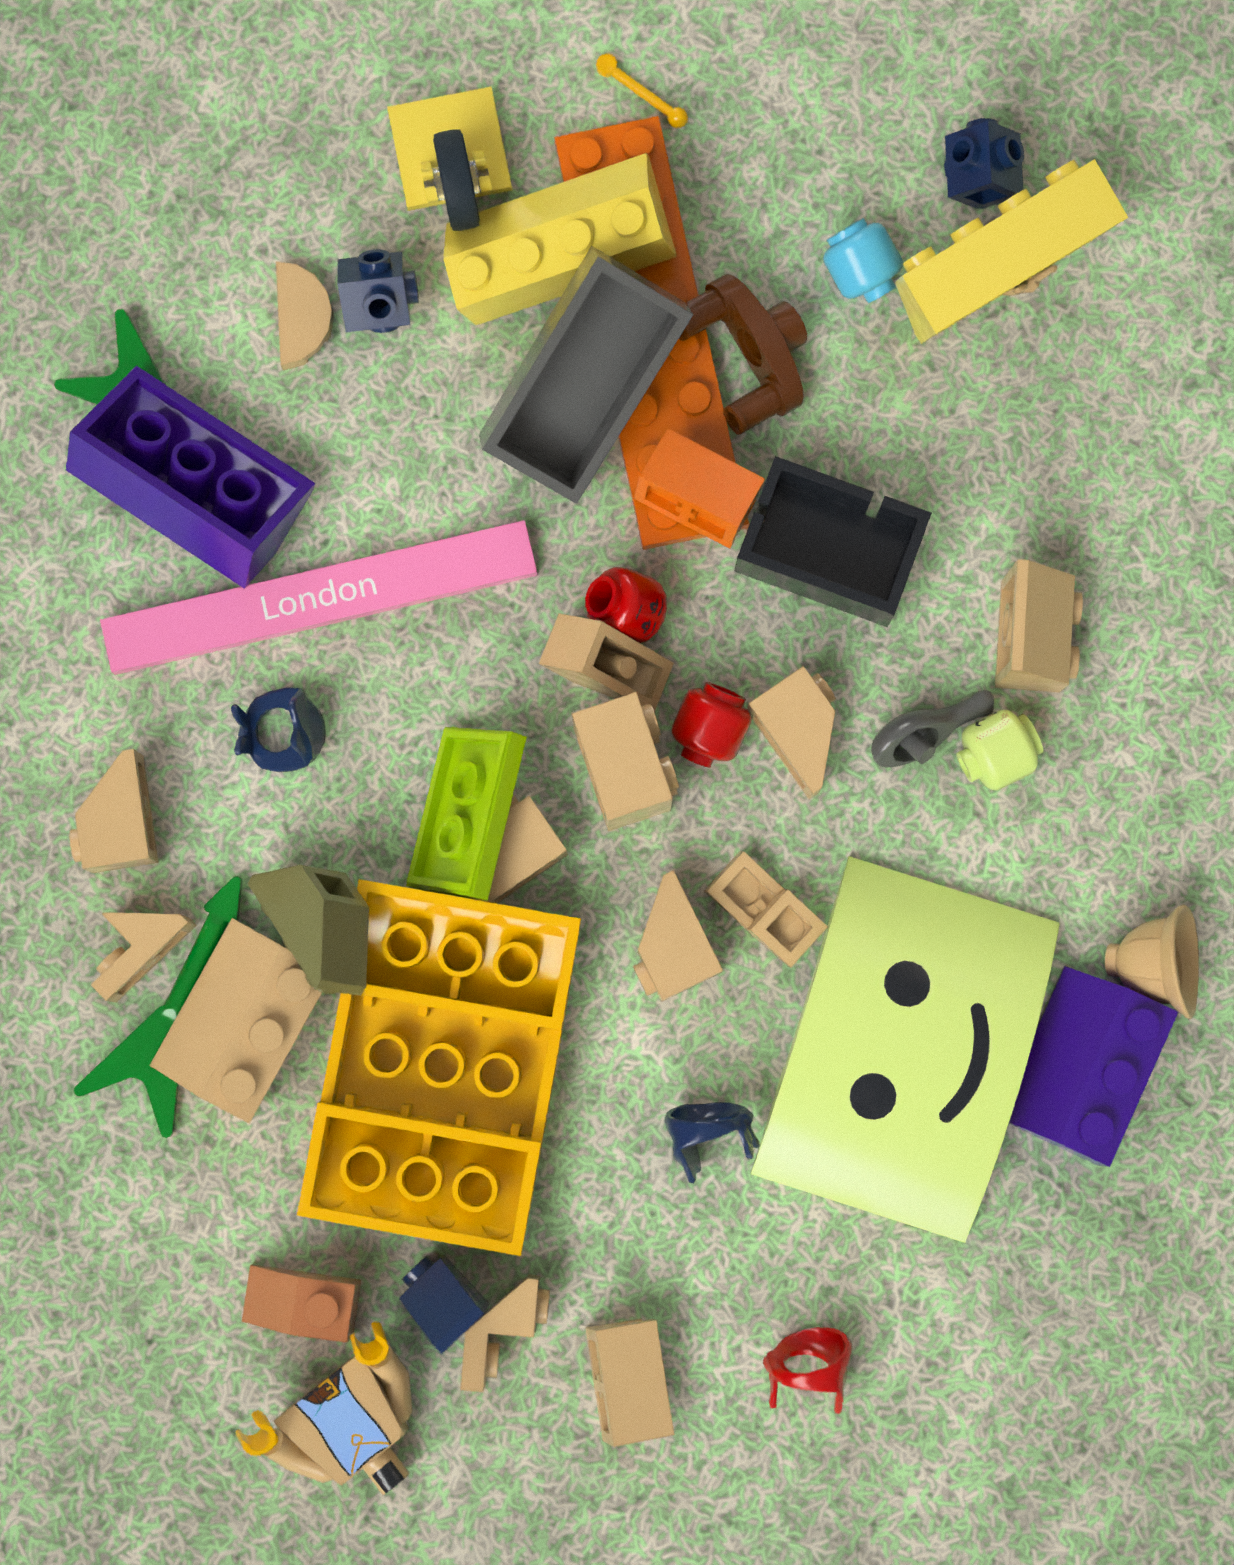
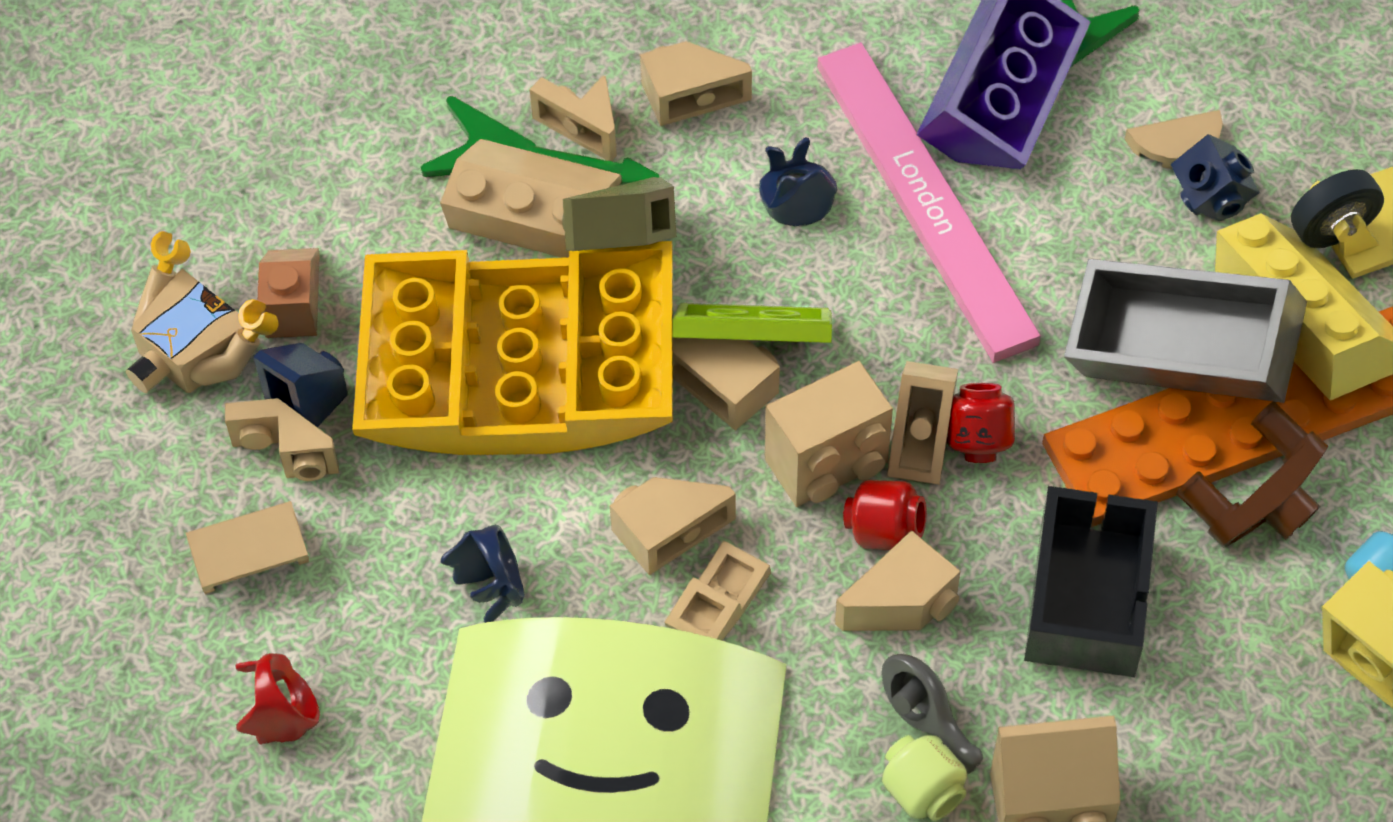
camera: 80 degrees right, 25 degrees down
(698, 488) = (1111, 447): orange hinge -> none

